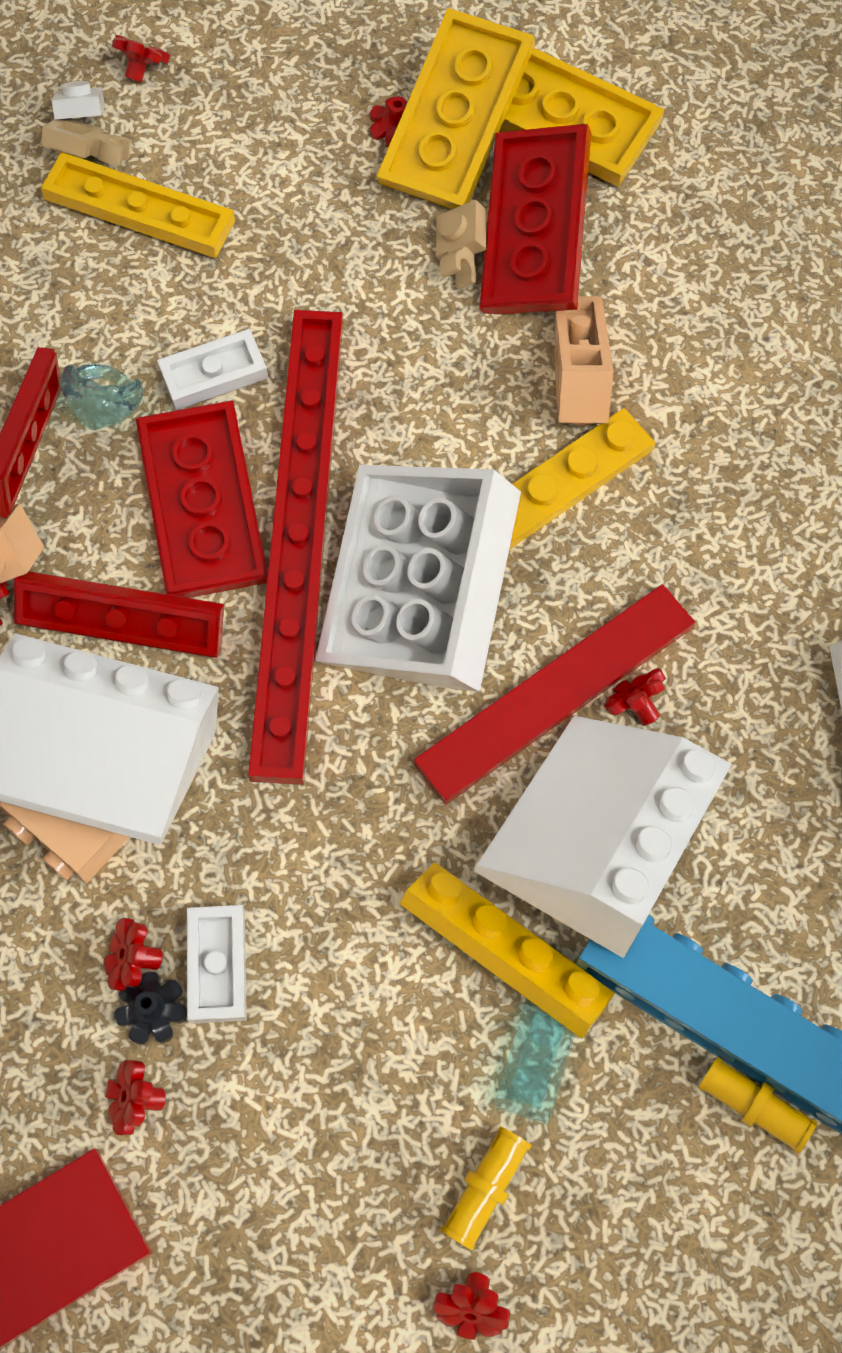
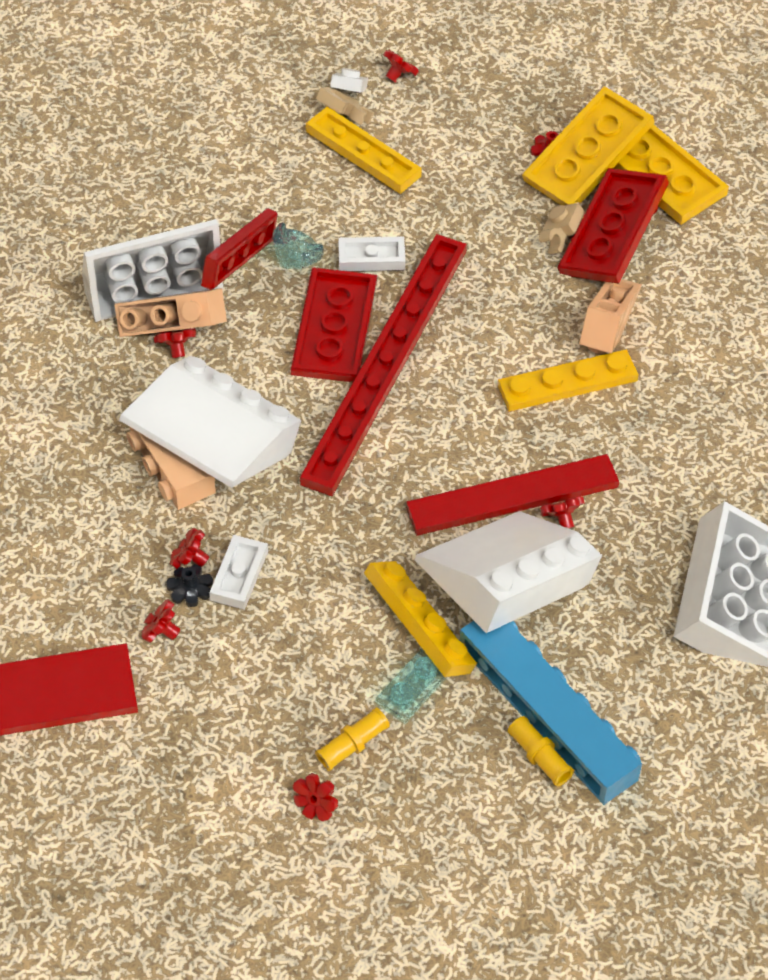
camera: 20 degrees right, 15 degrees down
(118, 613) = (258, 369): red tile -> none
(420, 574) = (453, 399): white slope -> none

